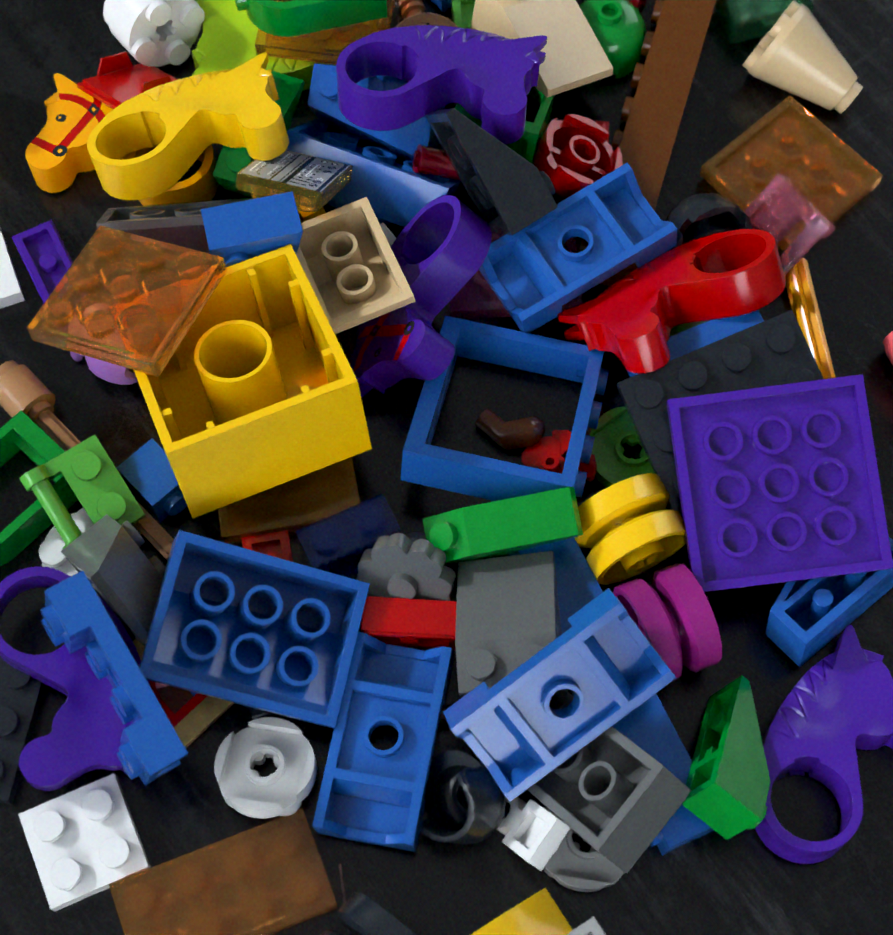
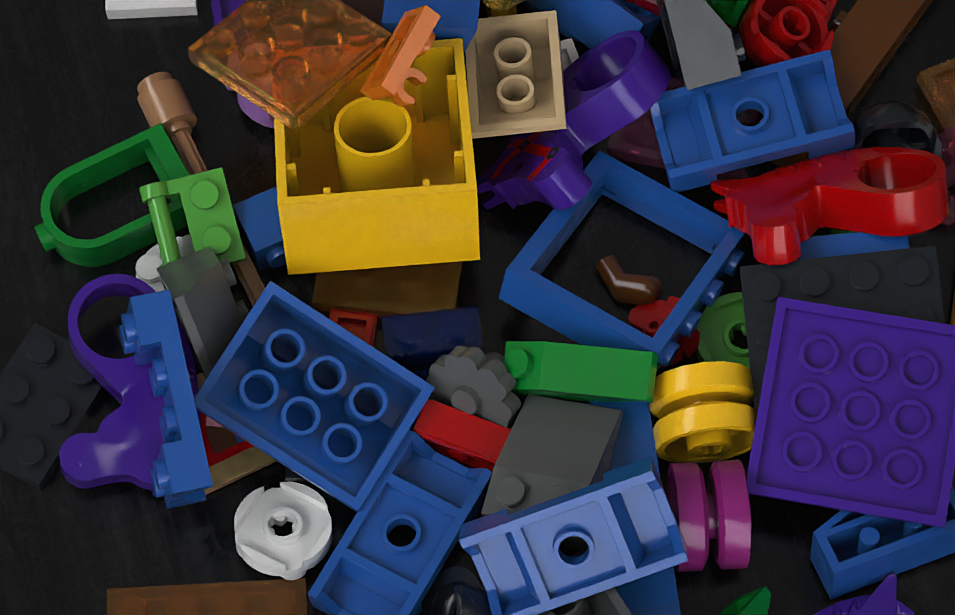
camera: 20 degrees right, 0 degrees up
(83, 842) = (96, 544): white plate -> none
(241, 260) = (410, 39): none -> orange plate

